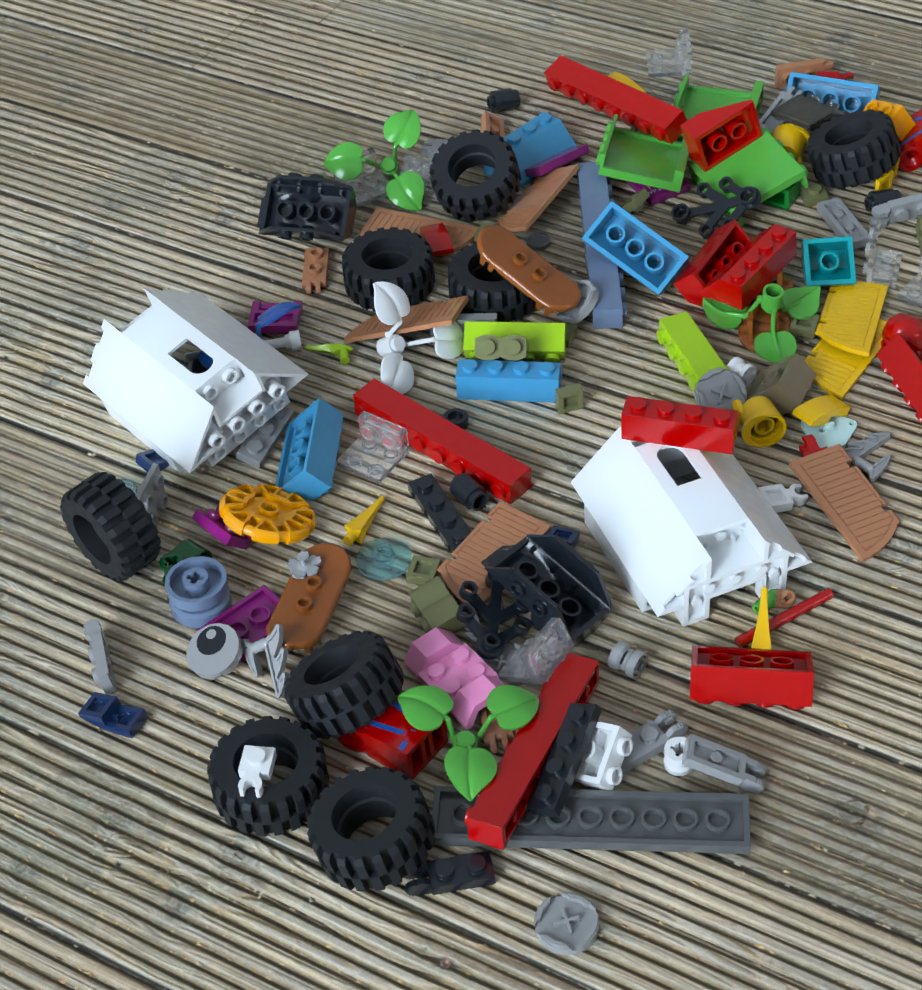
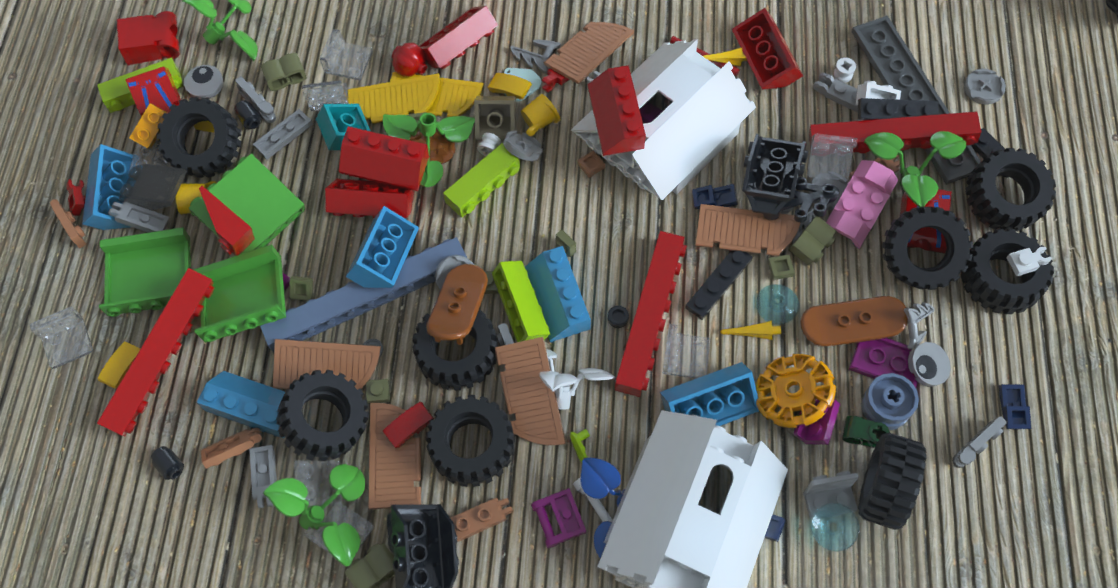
camera: 115 degrees left, 20 degrees up
(304, 565) = (833, 334): light grey plant -> none
(469, 491) = (693, 269): black brick -> none
(507, 348) = (546, 297): olive brick -> none
(557, 160) = (258, 372): magenta tile -> none
(628, 660) = (790, 116): light grey wheel -> none
(719, 206) = (298, 213): black plant -> none
(723, 763) = (844, 42): light grey hinge -> none

